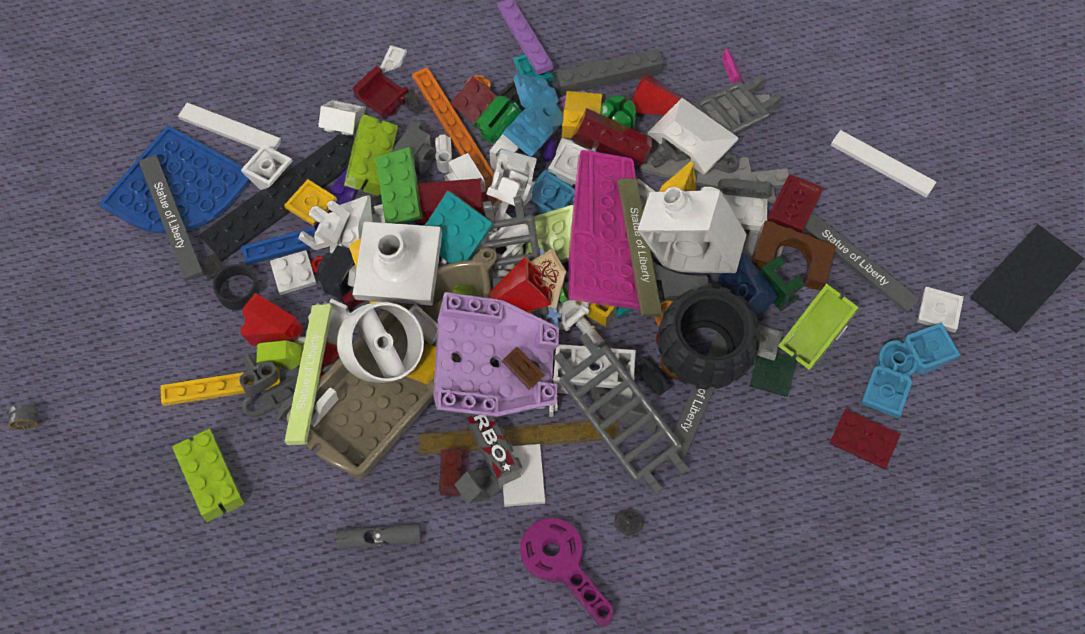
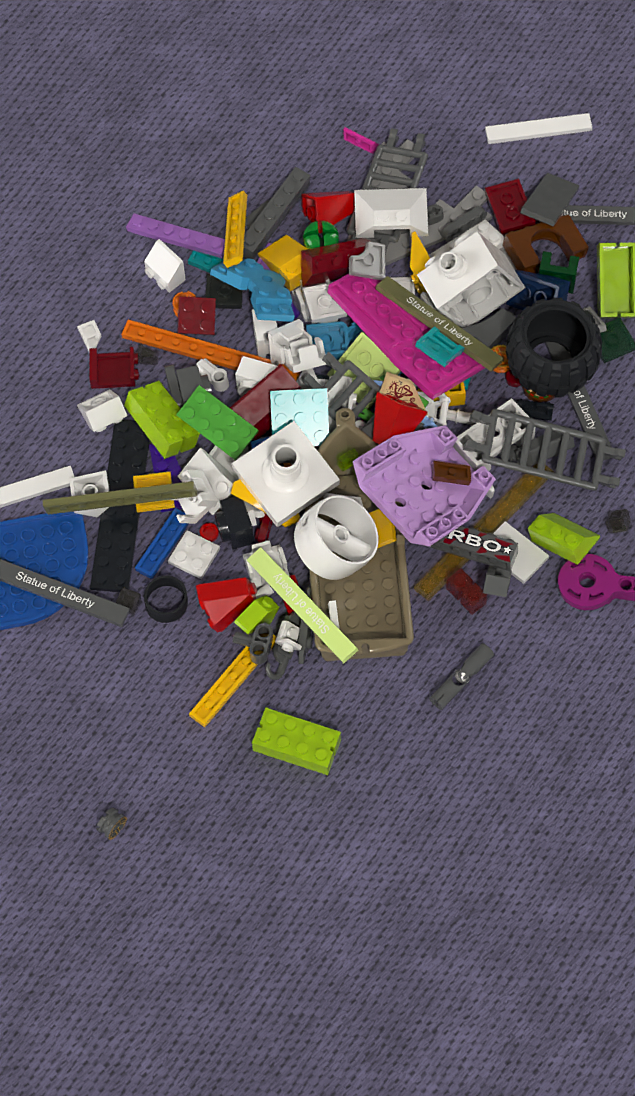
camera: 40 degrees left, 0 degrees up
(274, 185) = (120, 498): none -> olive tile
(281, 390) = (288, 636): none -> white bracket
(489, 50) = (164, 267): none -> white slope
(497, 118) = (234, 315): green cylinder -> none
(563, 60) = (235, 229): none -> yellow plate
(569, 494) = (562, 536): none -> lime slope
(612, 264) = (439, 347): none -> teal plate
(631, 158) = (369, 263): none -> light grey tile
(832, 222) = (550, 199): none -> dark grey tile

